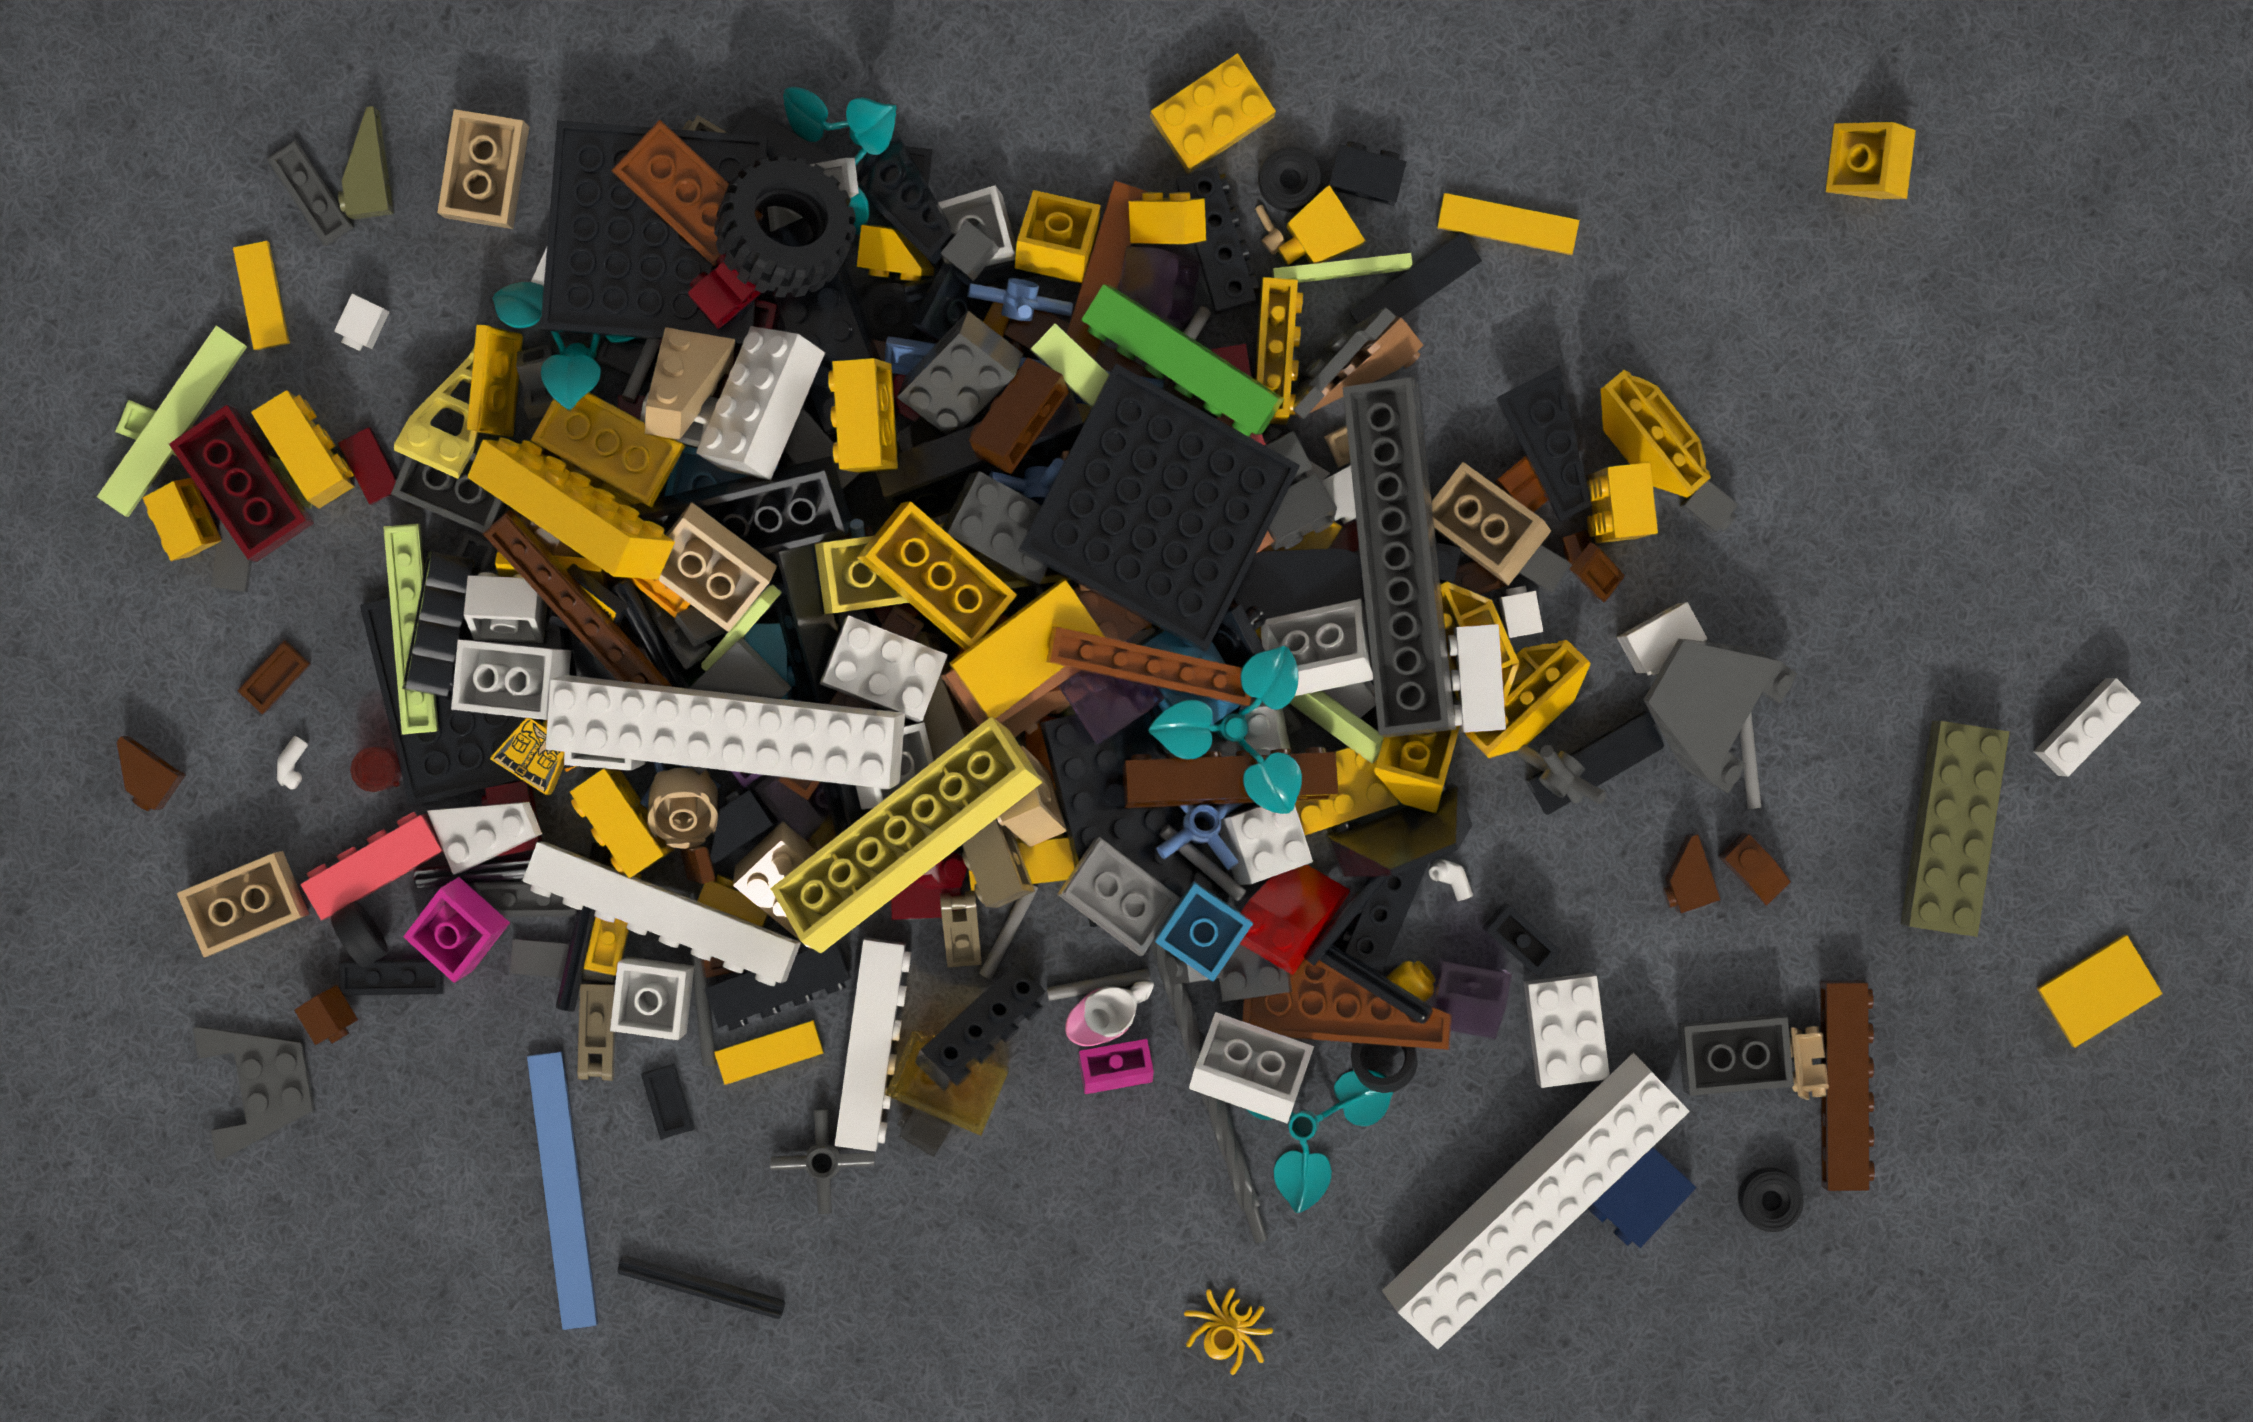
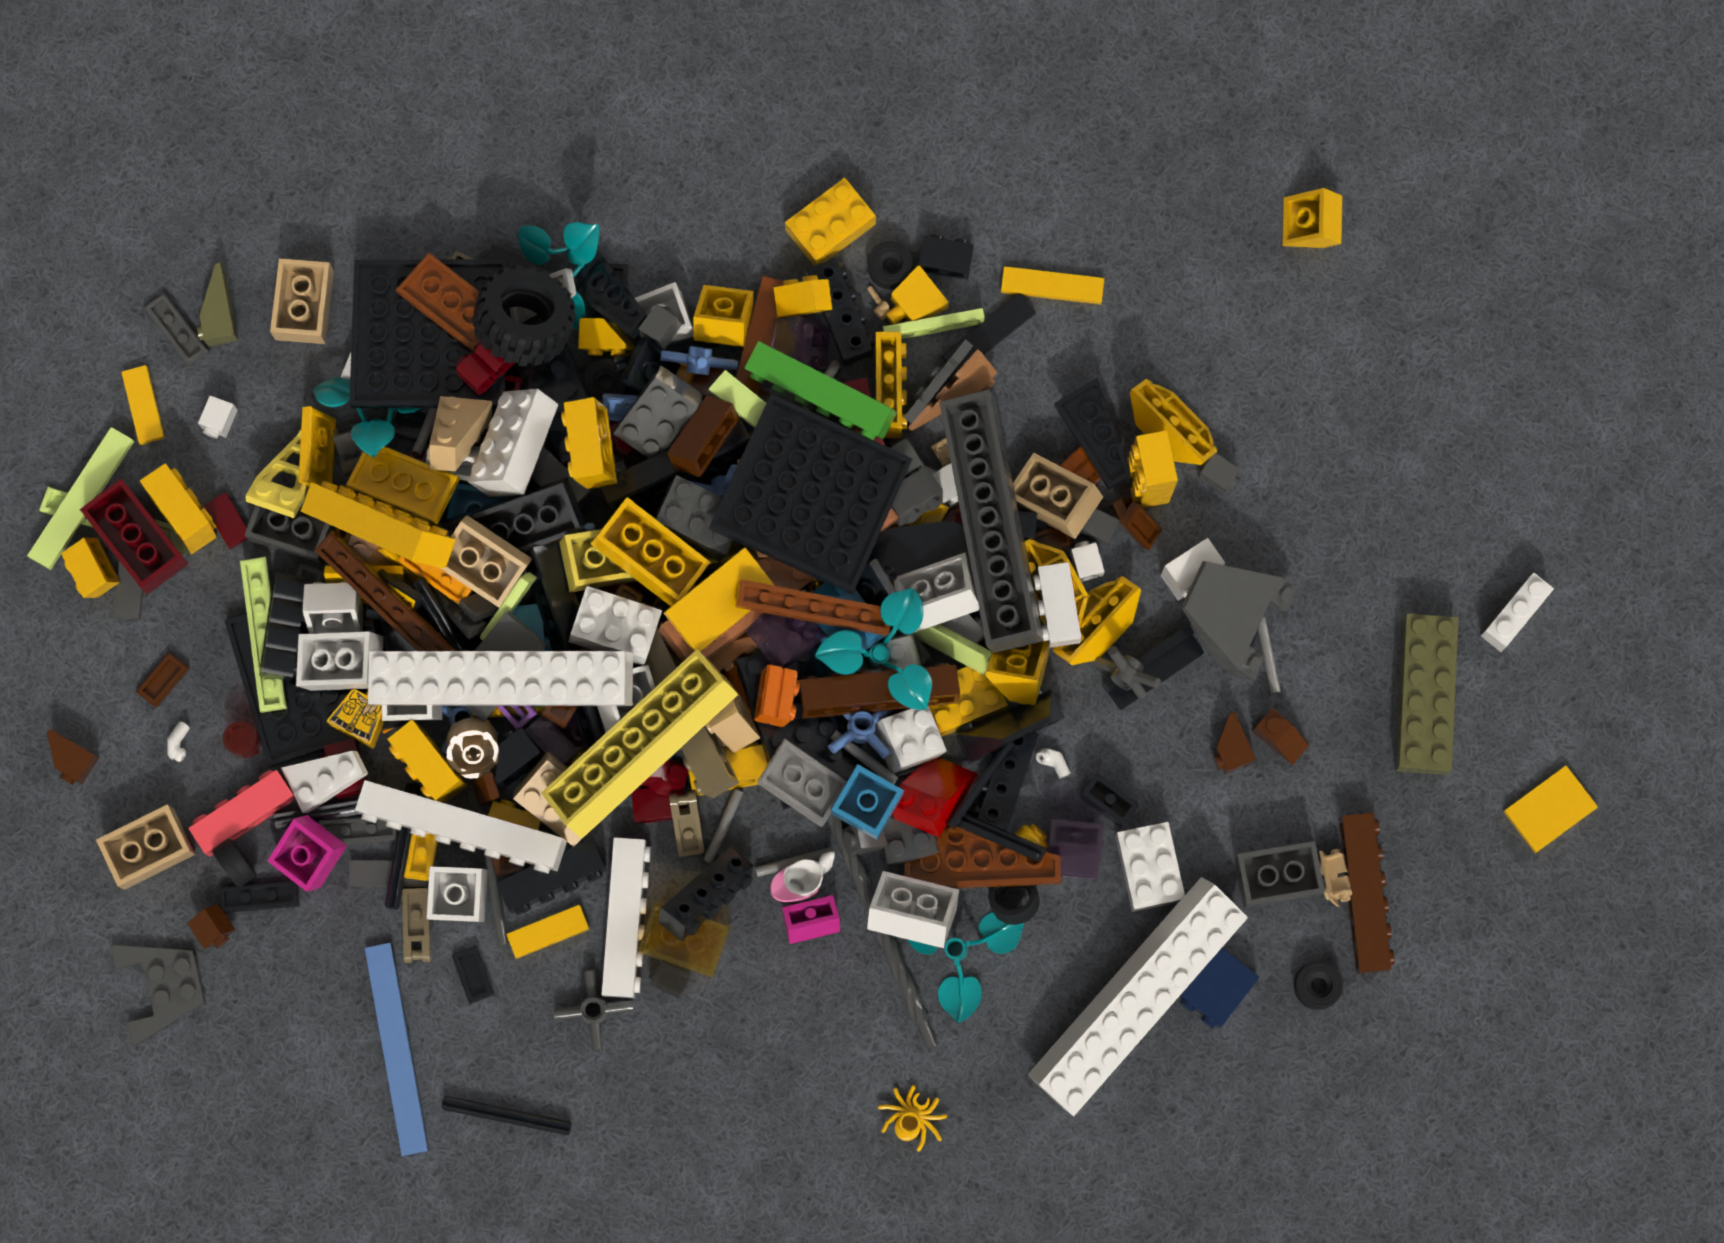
camera: 10 degrees left, 10 degrees down
(1093, 779) = (776, 696): none -> orange brick

